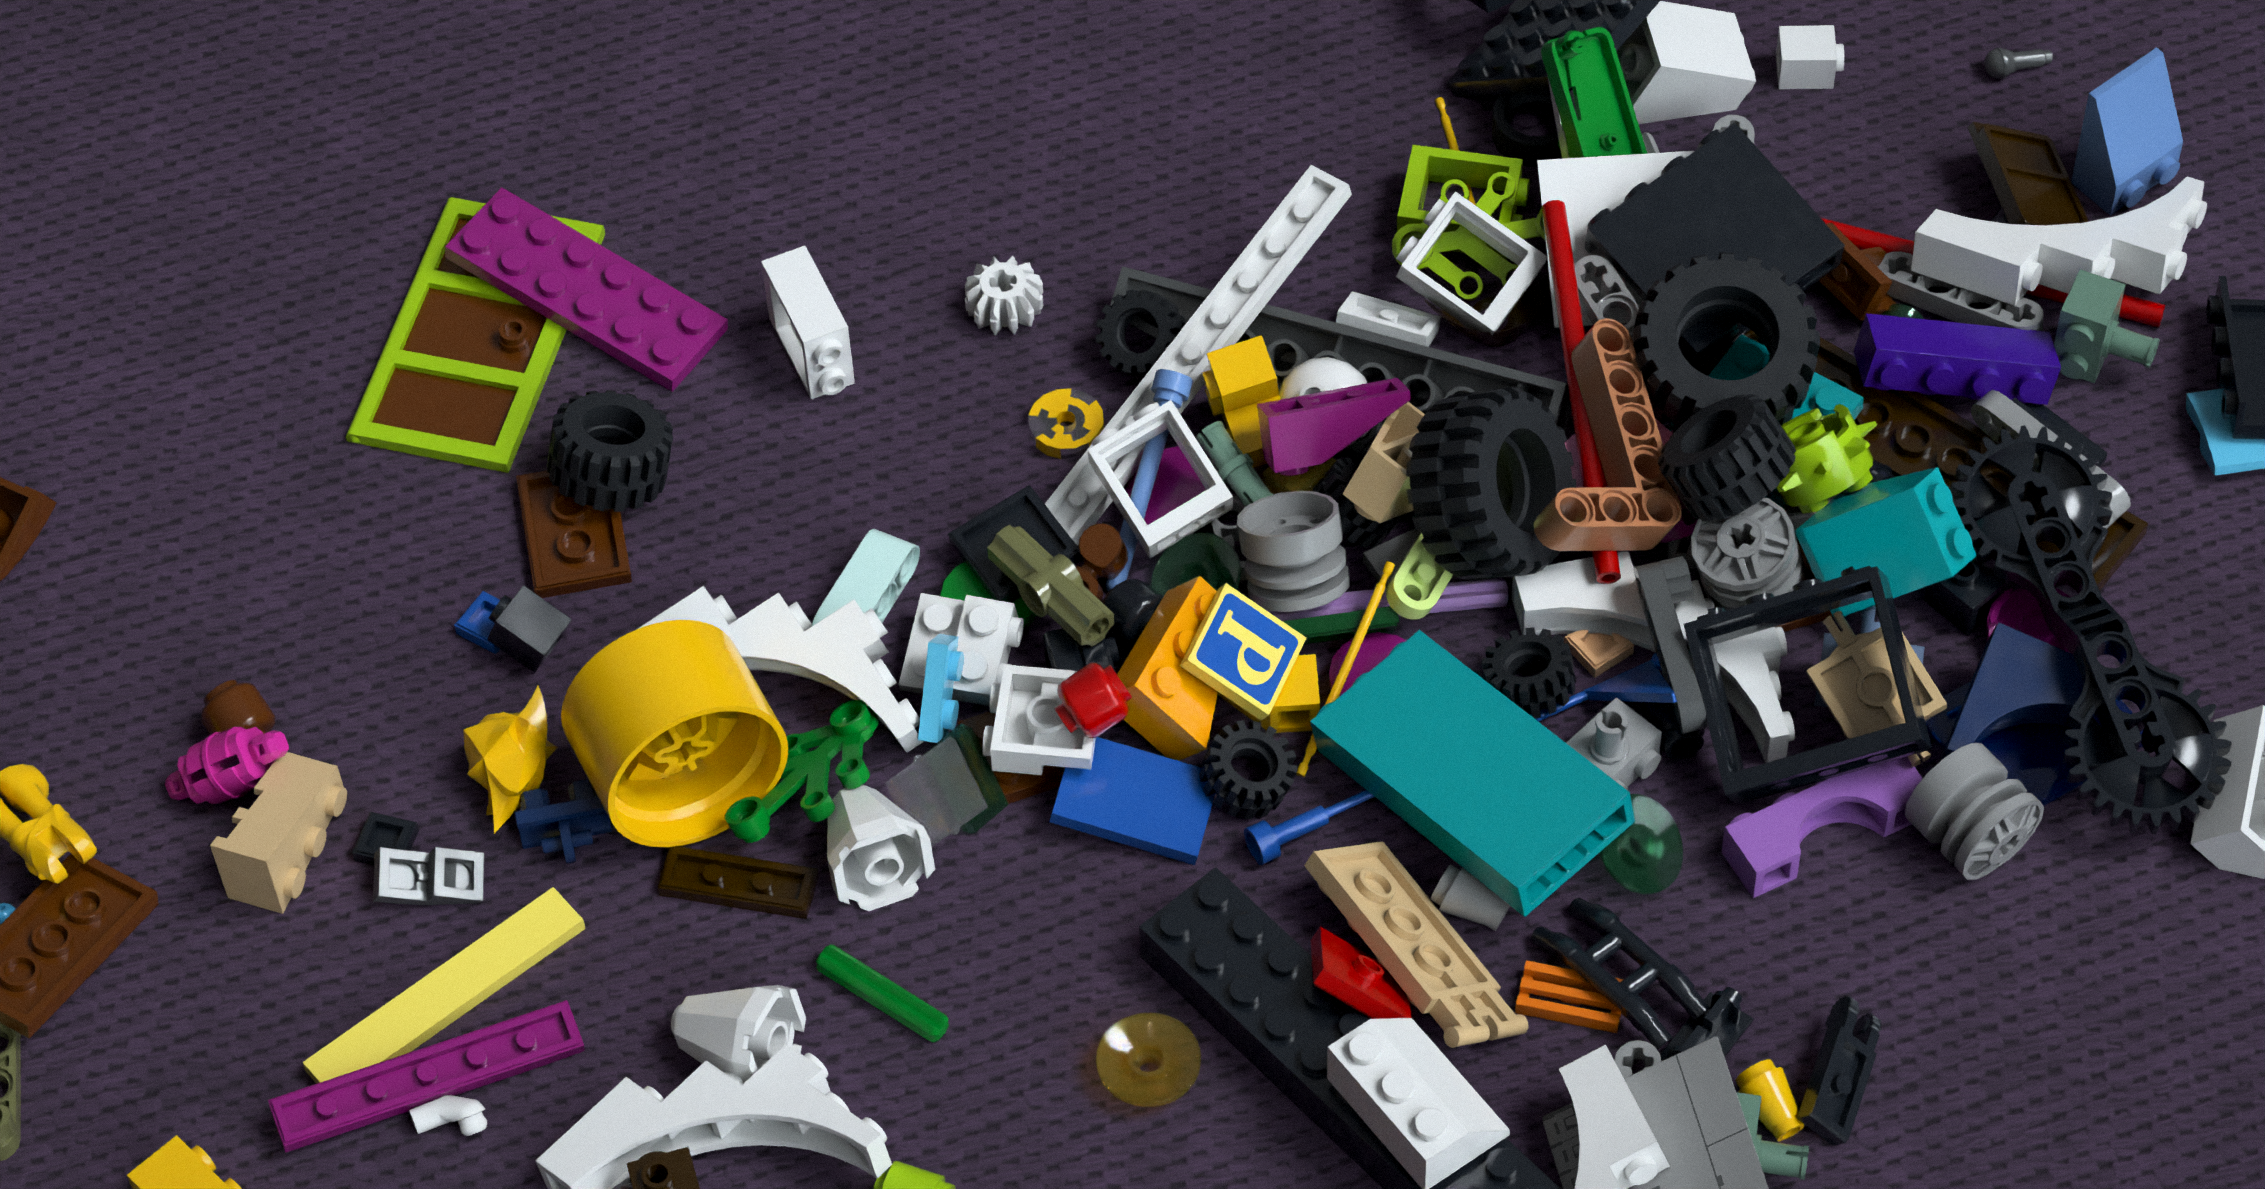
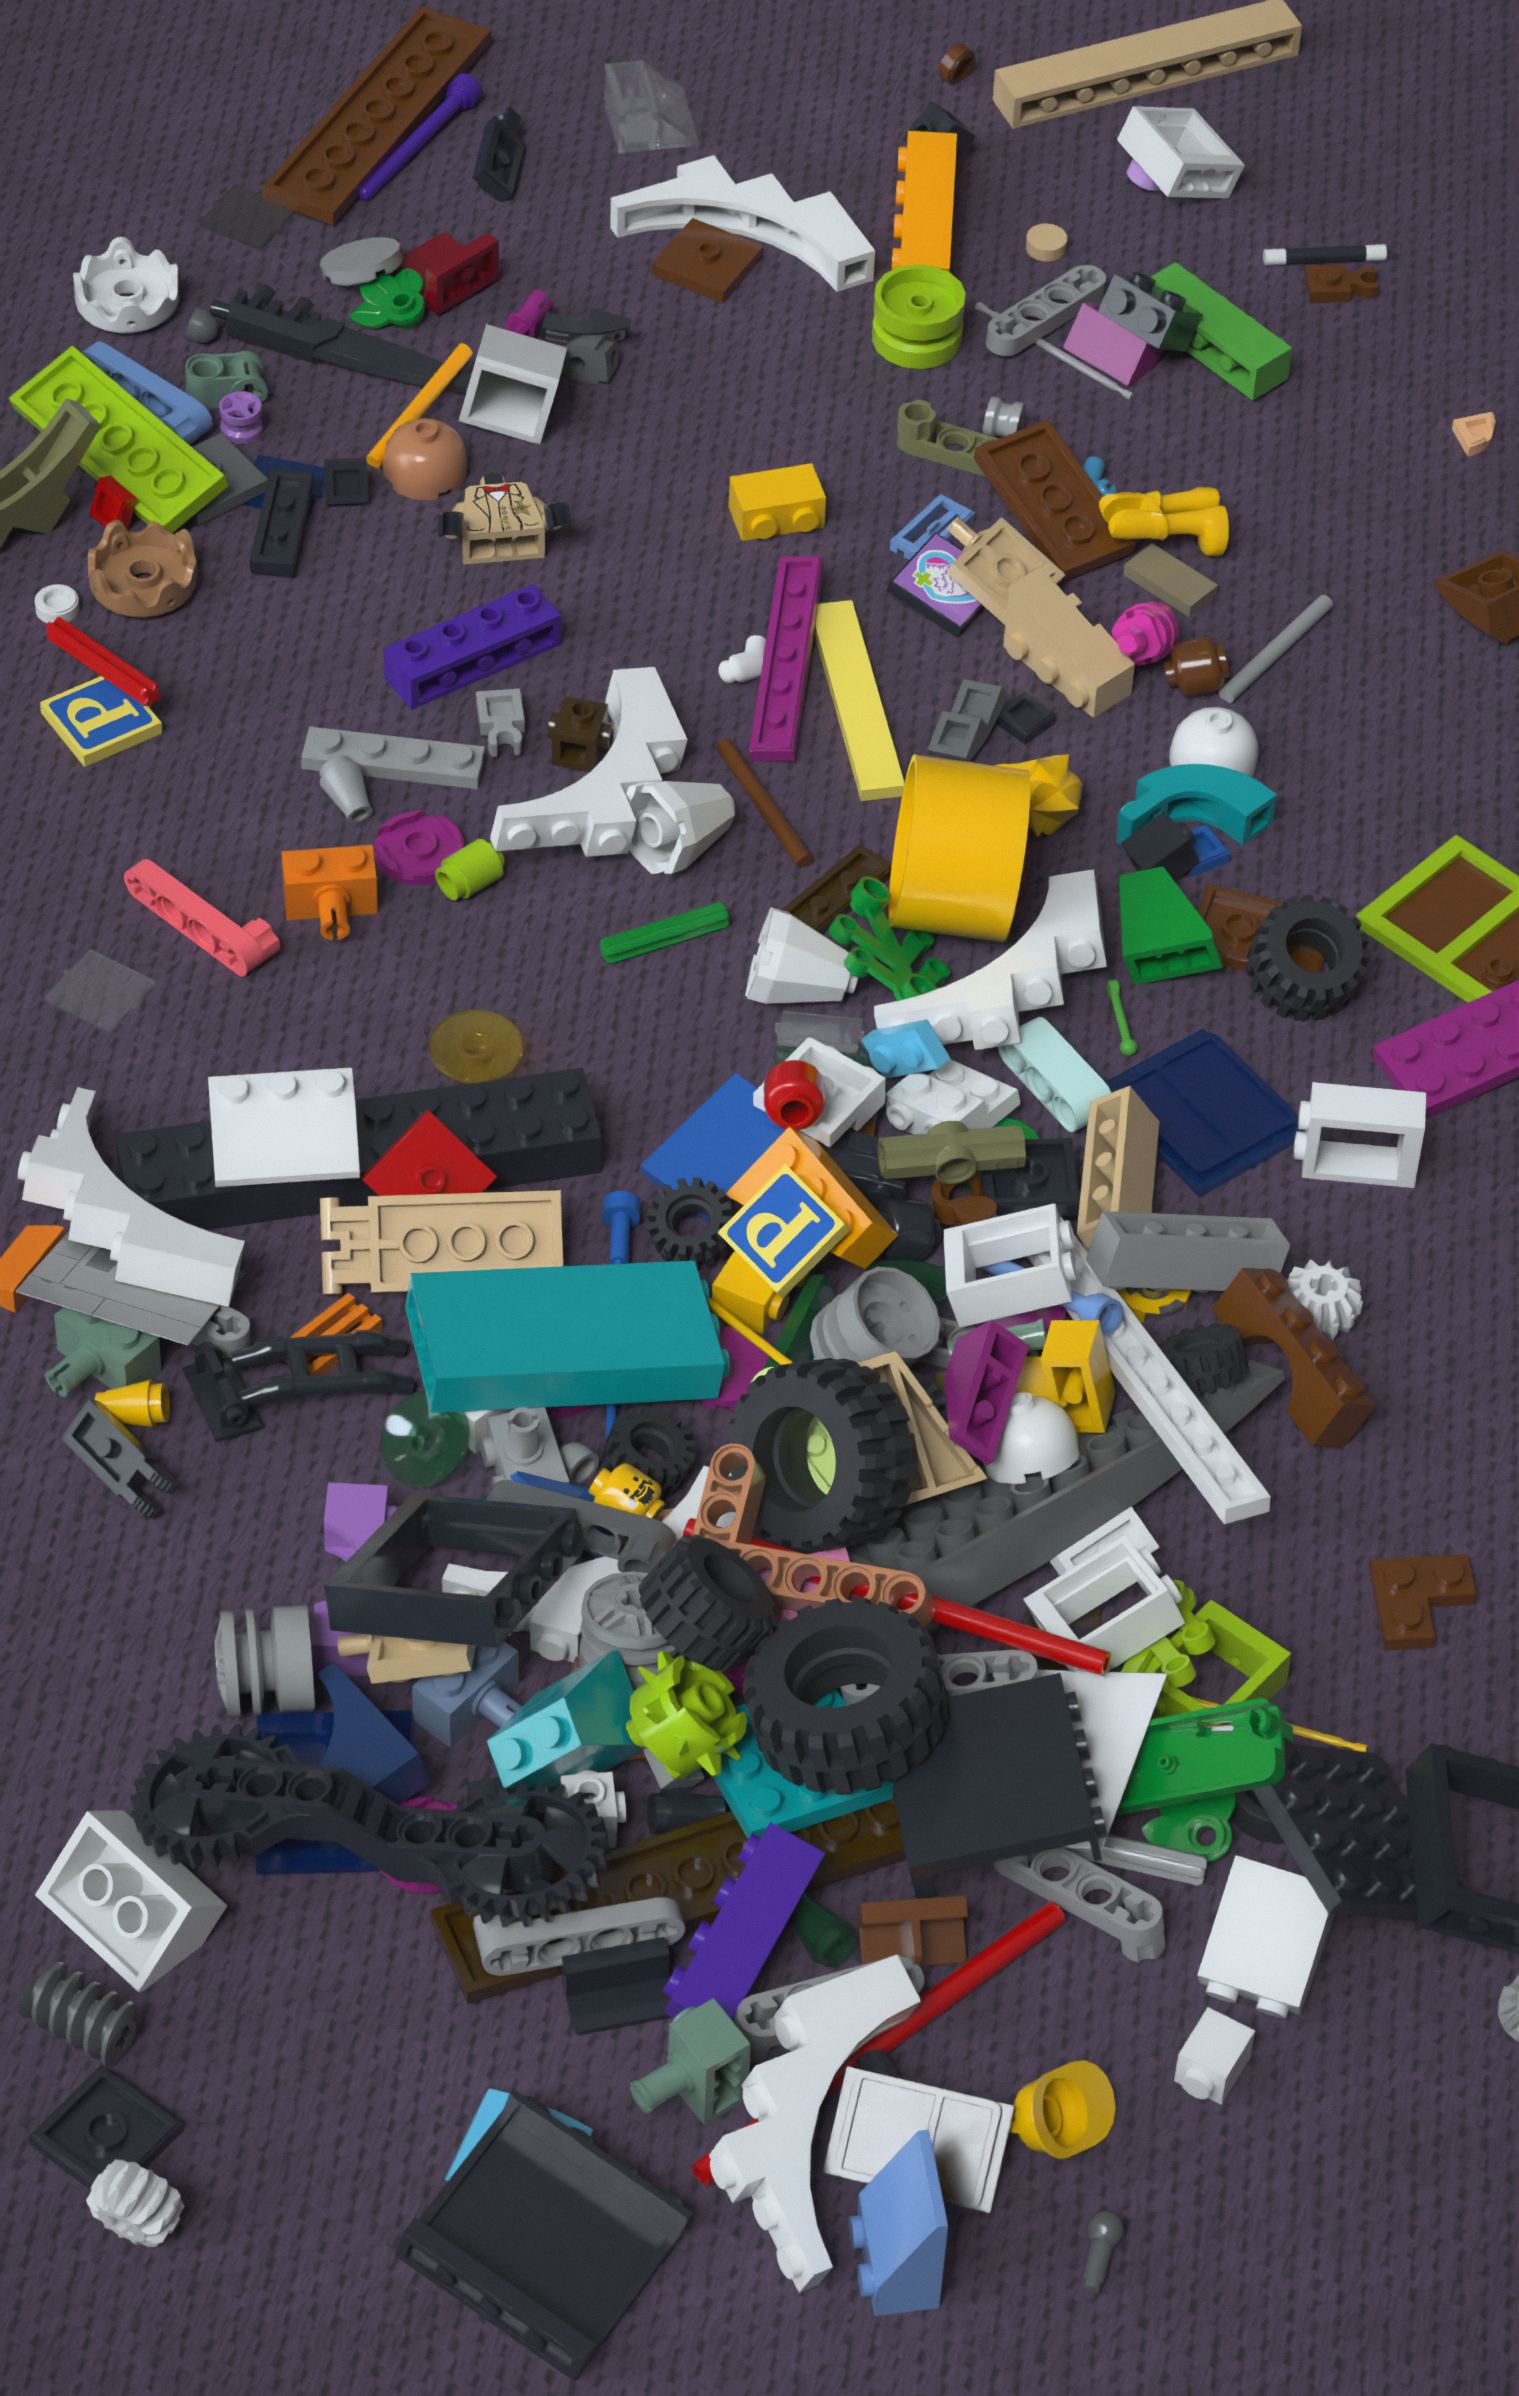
camera: 115 degrees right, 5 degrees down
(108, 804) = (1170, 580): none -> dark tan tile
(140, 678) = (1276, 648): none -> light grey bar
(174, 1071) = (902, 540): none -> medium blue tile
(196, 930) = (993, 562): none -> tan plate
(231, 989) = (932, 591): none -> tile
(346, 660) = (1216, 738): none -> white cylinder
(441, 665) = (1201, 794): none -> teal arch
(629, 583) = (1162, 929): none -> green slope
(644, 1003) = (764, 803): none -> reddish brown bar
(783, 565) = (1128, 1046): none -> bright green hinge
(824, 481) = (1210, 1111): none -> clear blue piece
(977, 473) = (1117, 1159): none -> tan brick
(1043, 373) = (1182, 1250): none -> light grey brick
(1058, 312) = (1326, 1396): none -> reddish brown arch
(1267, 132) = (1406, 1590): none -> reddish brown plate
(1568, 723) = (578, 1462): none -> light grey hinge
(1602, 648) = (628, 1491): none -> yellow head
(1940, 126) = (1065, 2110): none -> yellow piece

